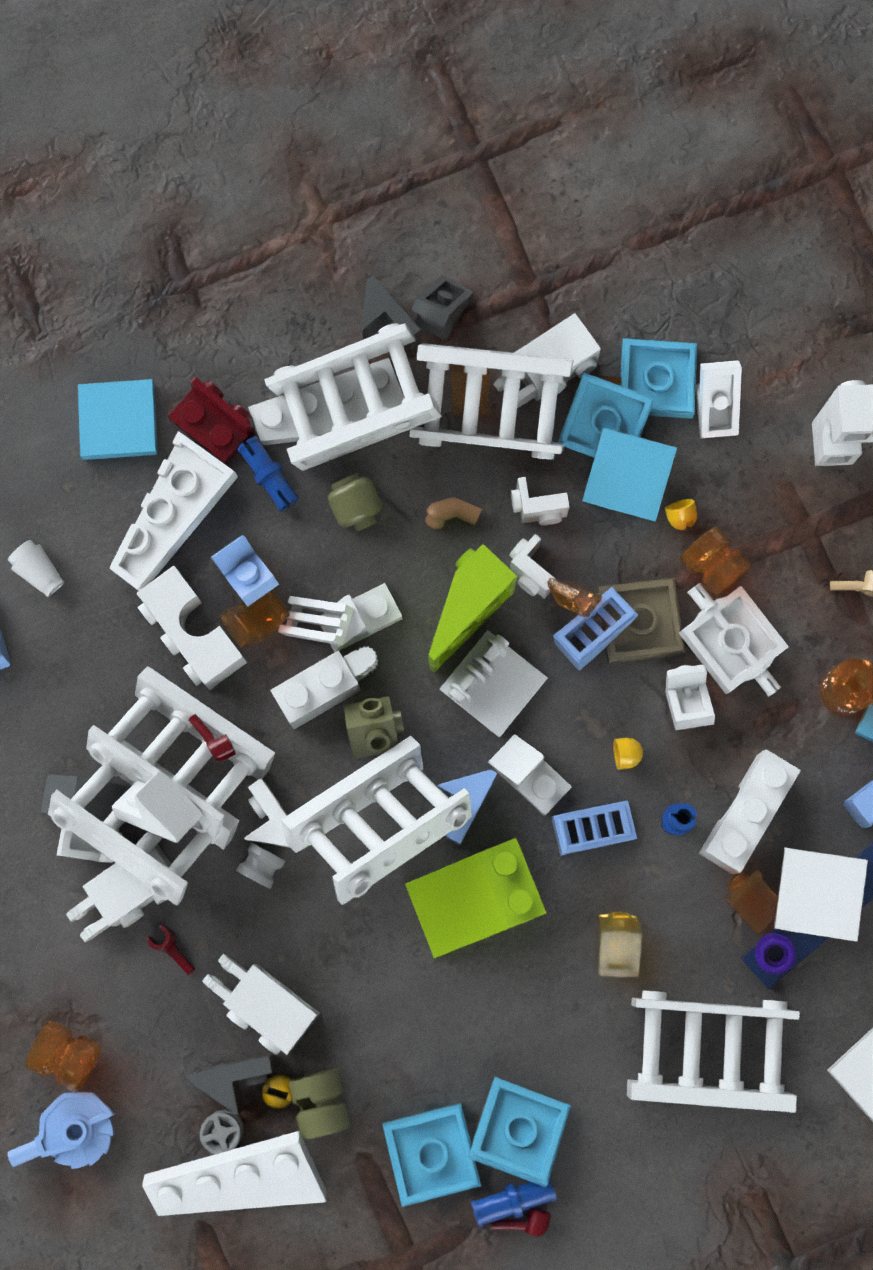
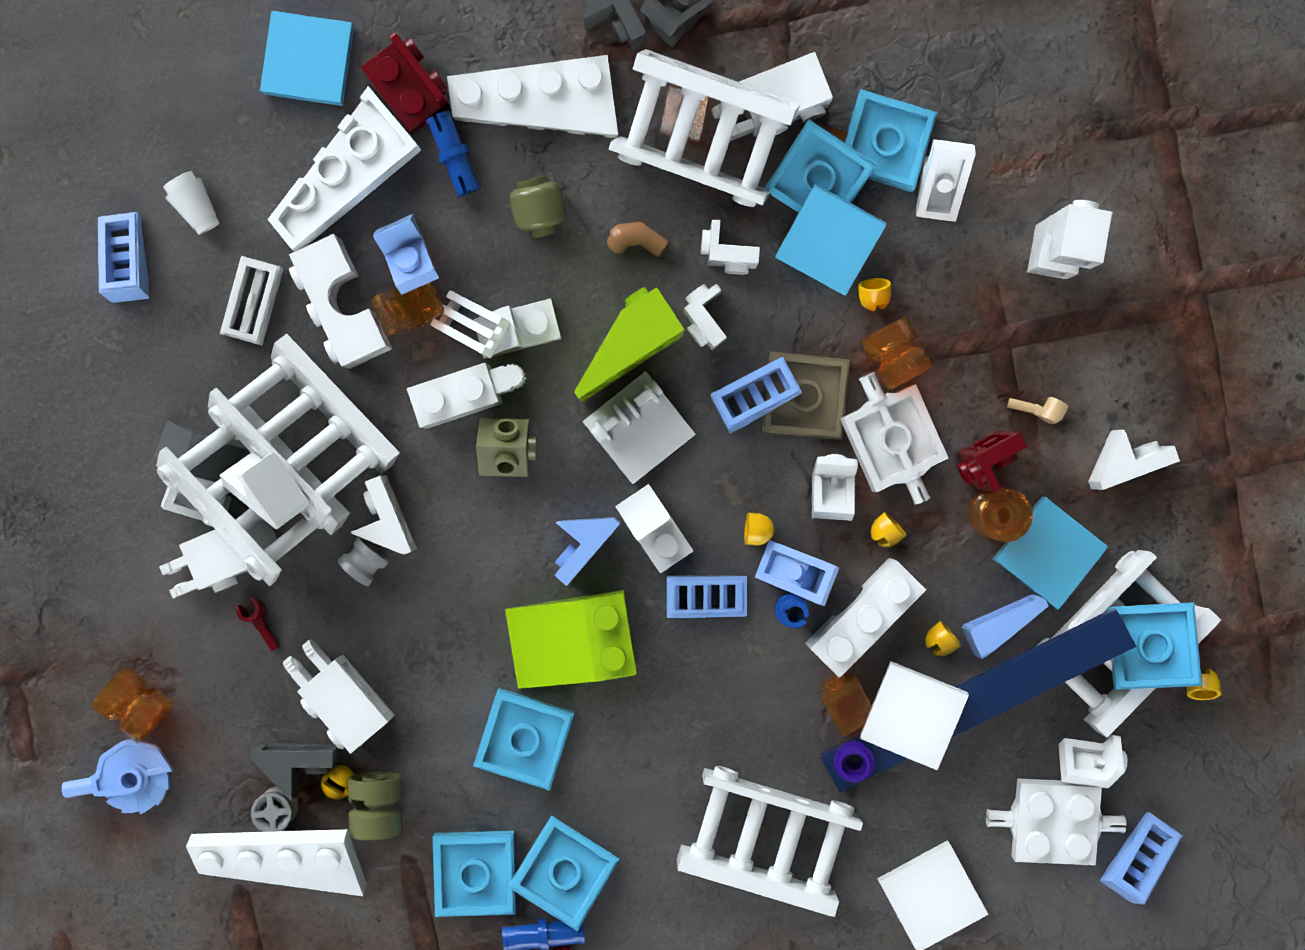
camera: 10 degrees right, 10 degrees up
(122, 646) = (266, 305): none -> white tile
(221, 747) = (342, 437): dark red hand -> none
(355, 792) = (470, 512): white fence -> none
(380, 420) = (581, 125): white fence -> none
(450, 1007) = (523, 739): none -> medium azure tile
(574, 596) = (741, 358): clear orange slope -> none
(619, 945) = (703, 716): clear yellow bracket -> none
(675, 783) = (797, 572): none -> light blue slope
(748, 728) = (886, 531): none -> yellow hinge
(817, 644) = (995, 449): none -> dark red bracket
(832, 819) = (944, 638): none -> yellow hinge

